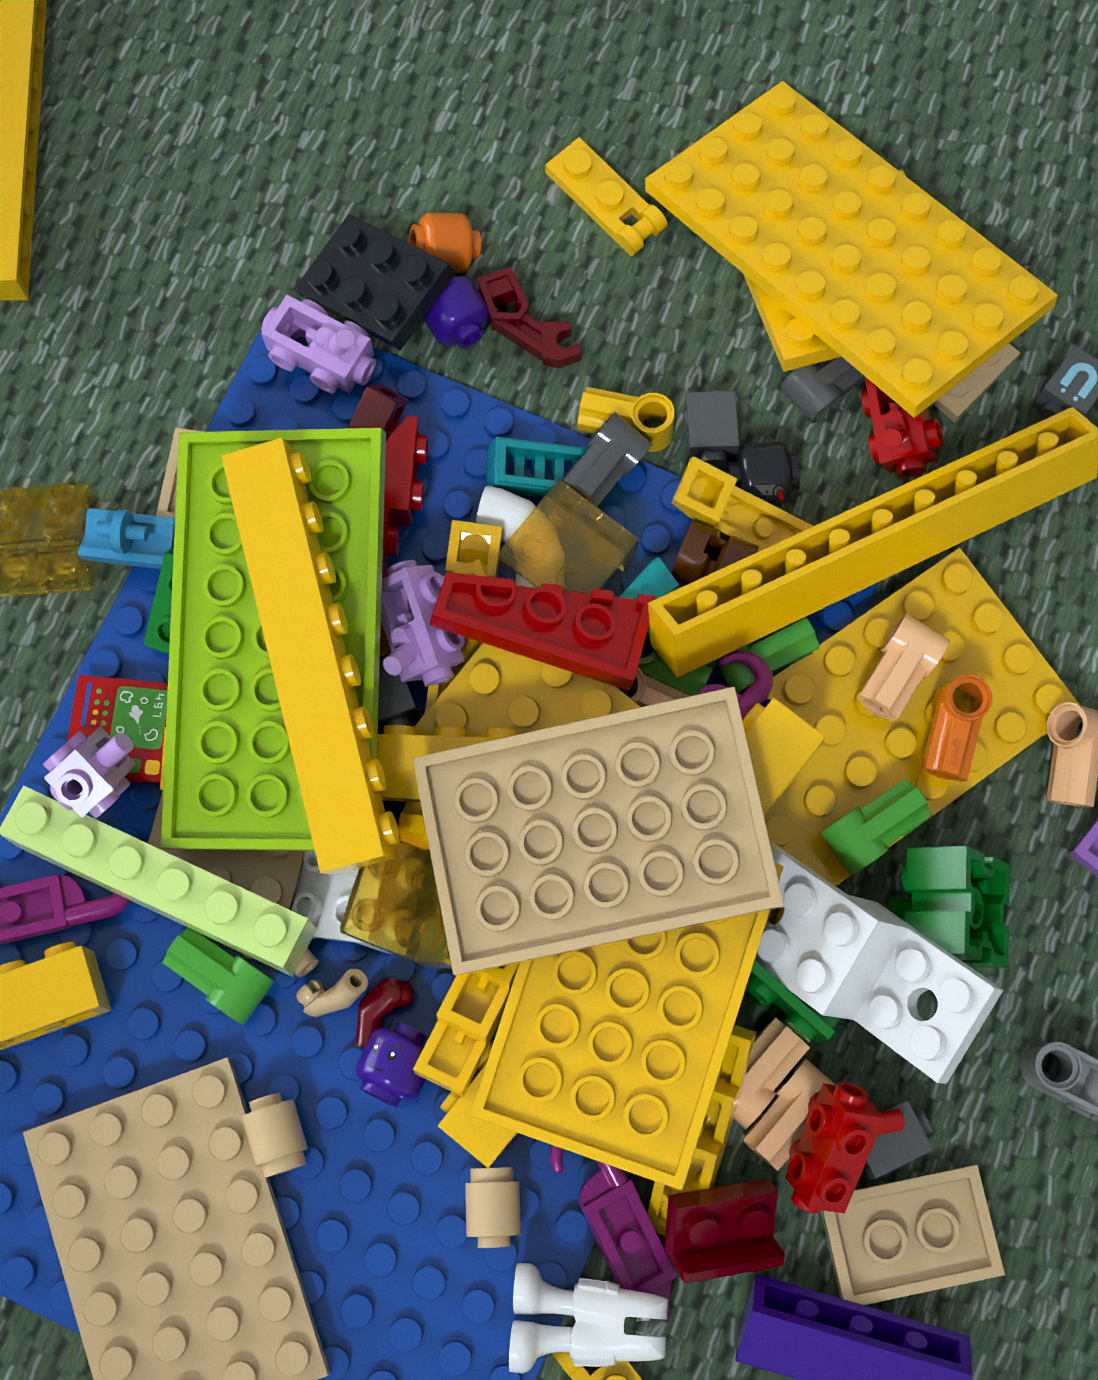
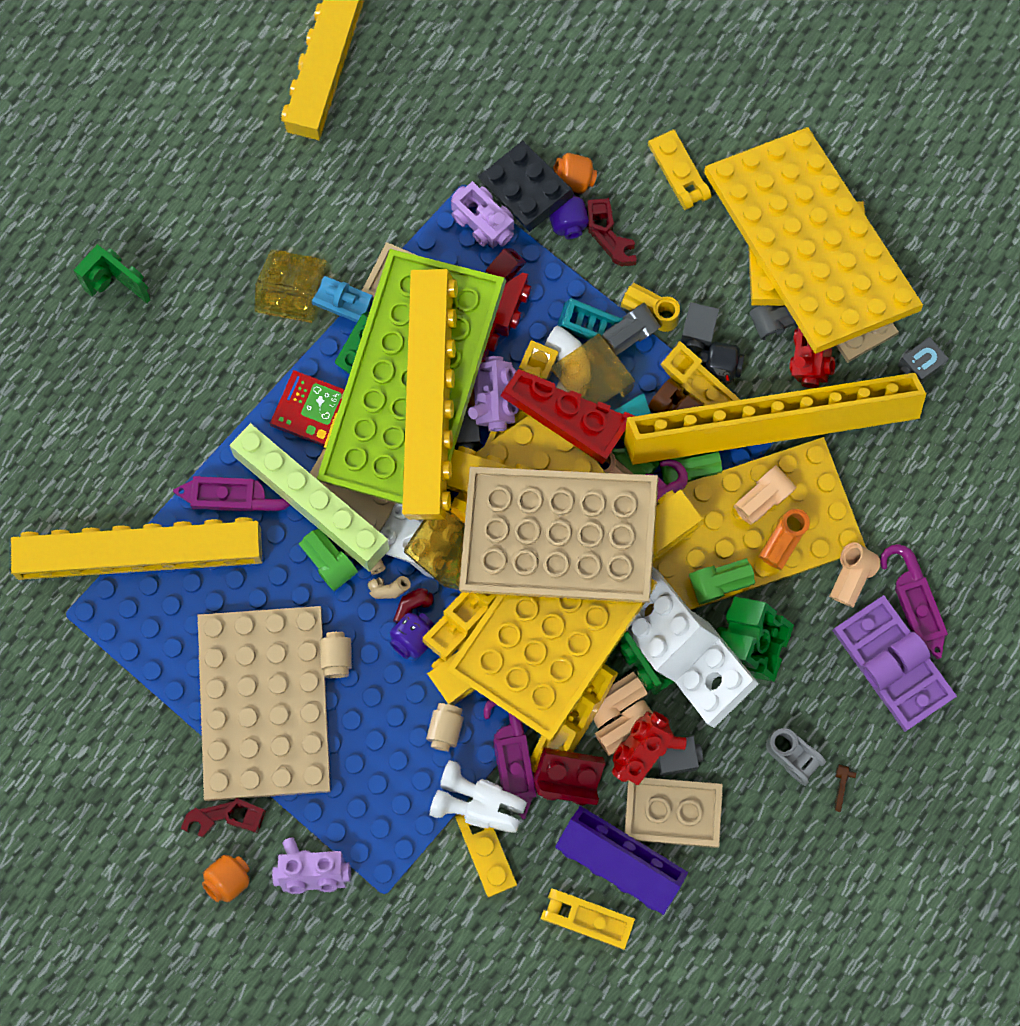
camera: 15 degrees right, 0 degrees up
(90, 771) = (289, 425): lavender brick -> none

